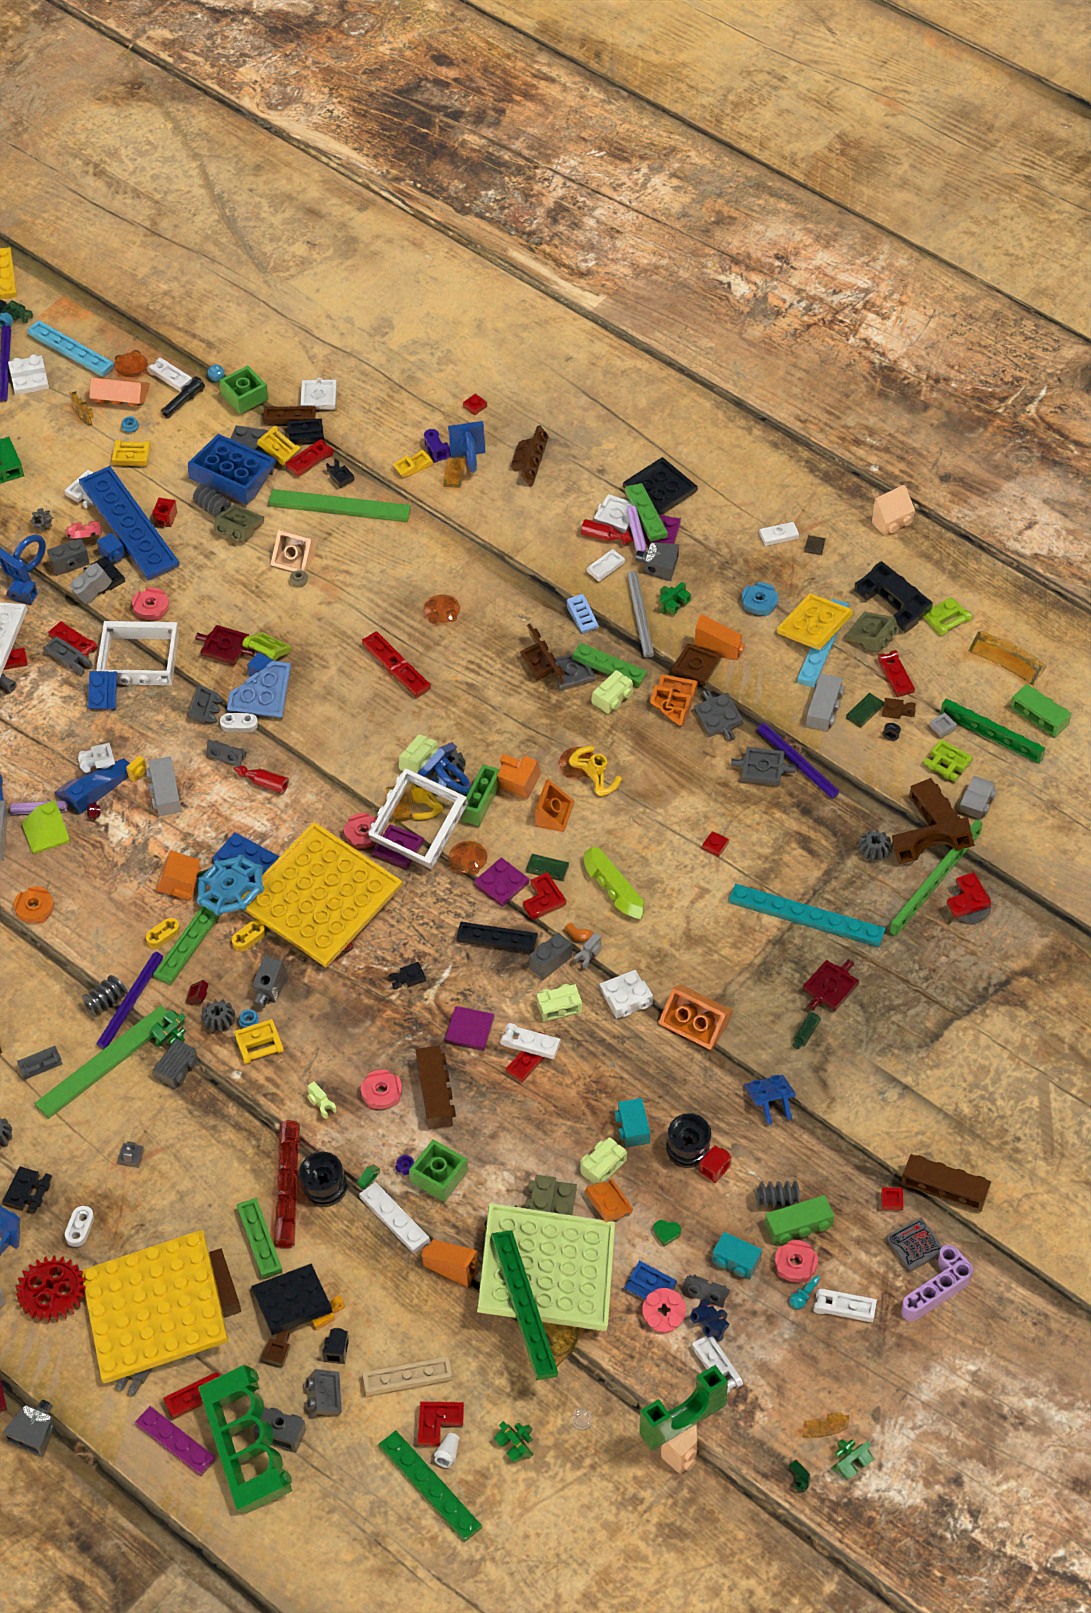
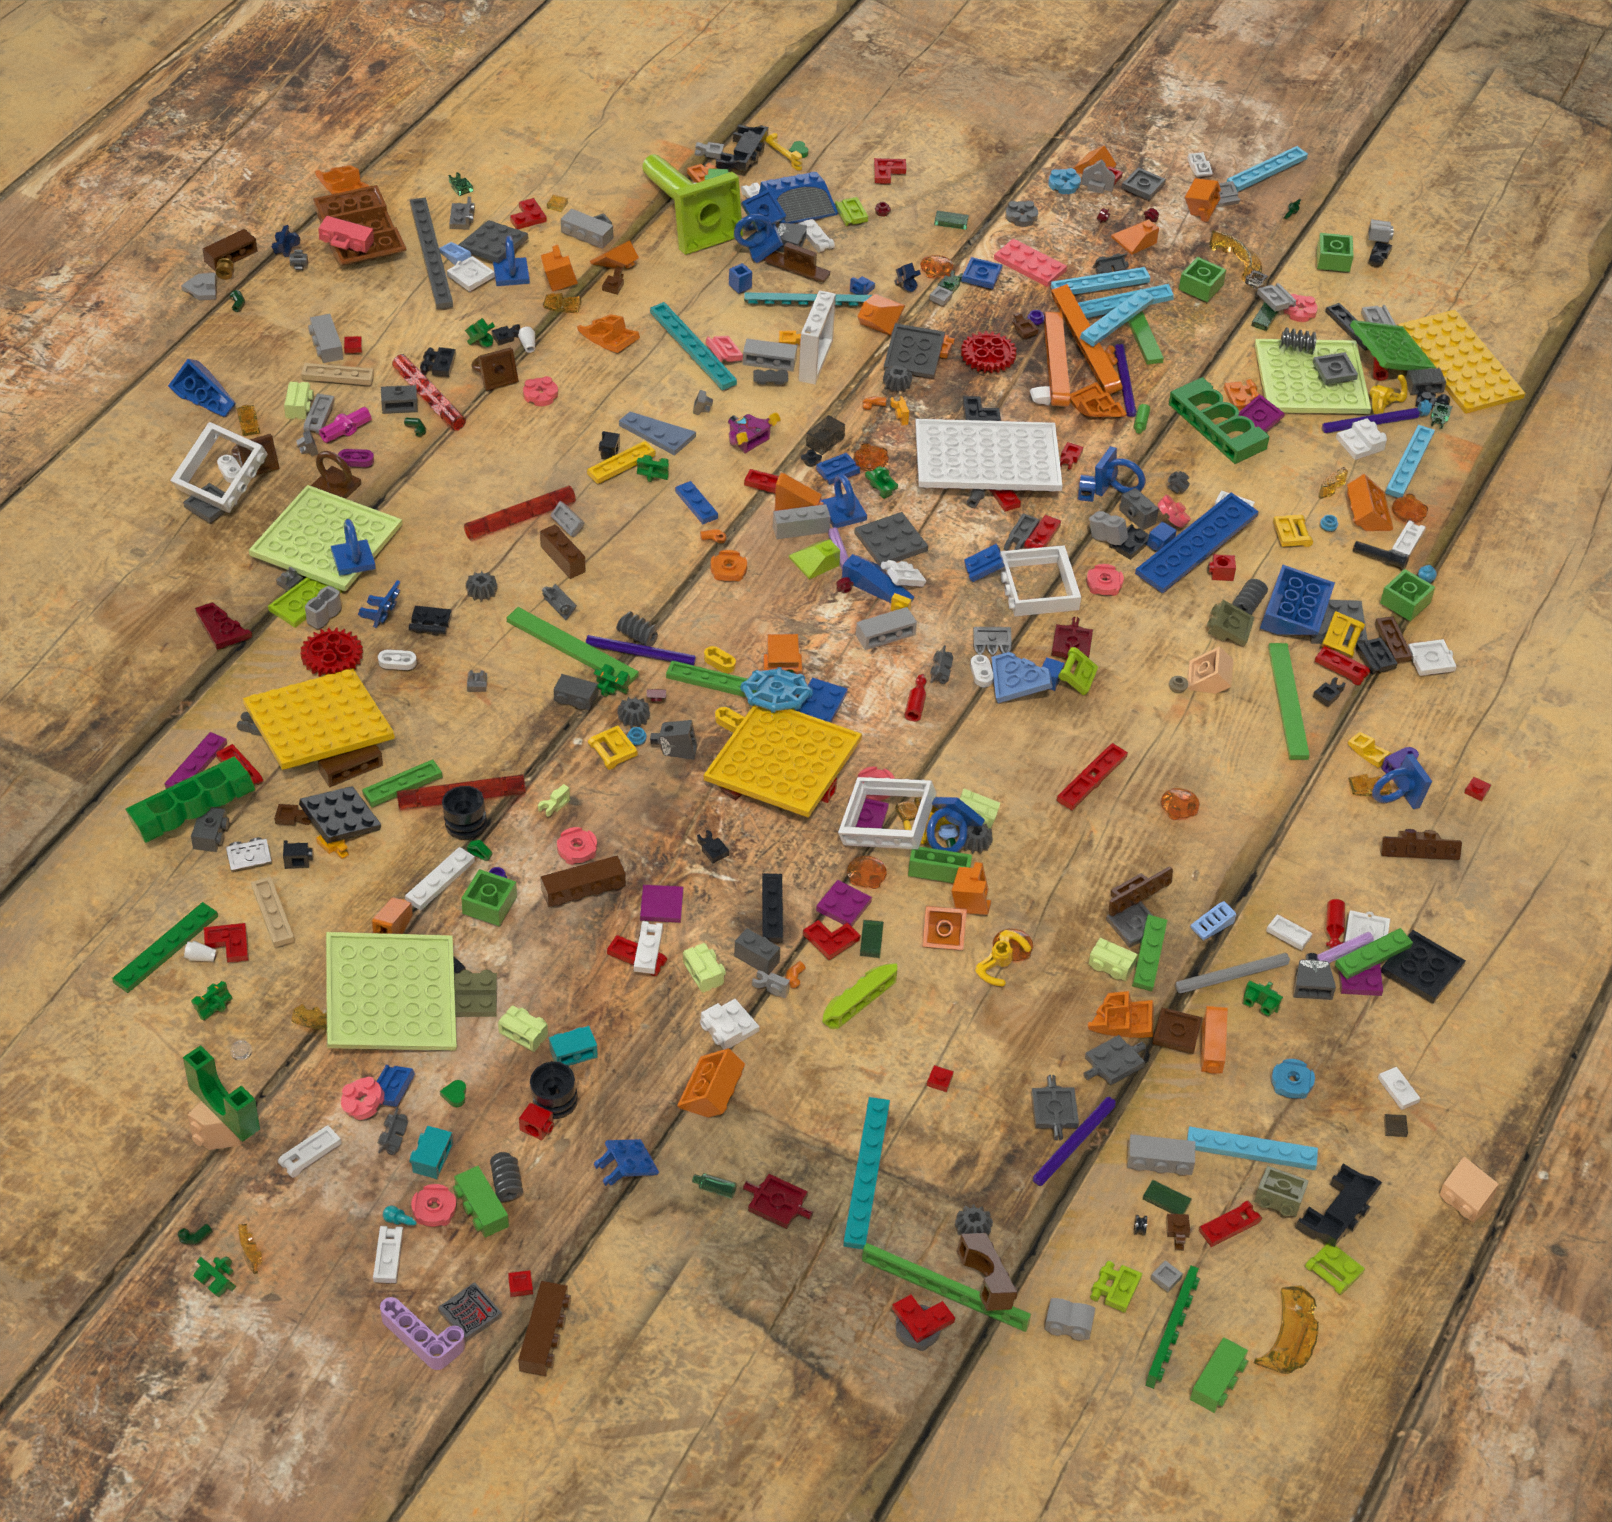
camera: 75 degrees right, 5 degrees down
(31, 1428) = (196, 666): dark grey torso -> none
(38, 762) = (891, 539): none -> dark grey plate
(524, 1305) = (334, 968): green tile -> none
(608, 1200) = (480, 1038): orange plate -> none
(713, 1321) = (360, 1129): dark blue hips -> none
(814, 621) = (1270, 1129): yellow plate -> none
(932, 803) = (1044, 1276): reddish brown brick -> none

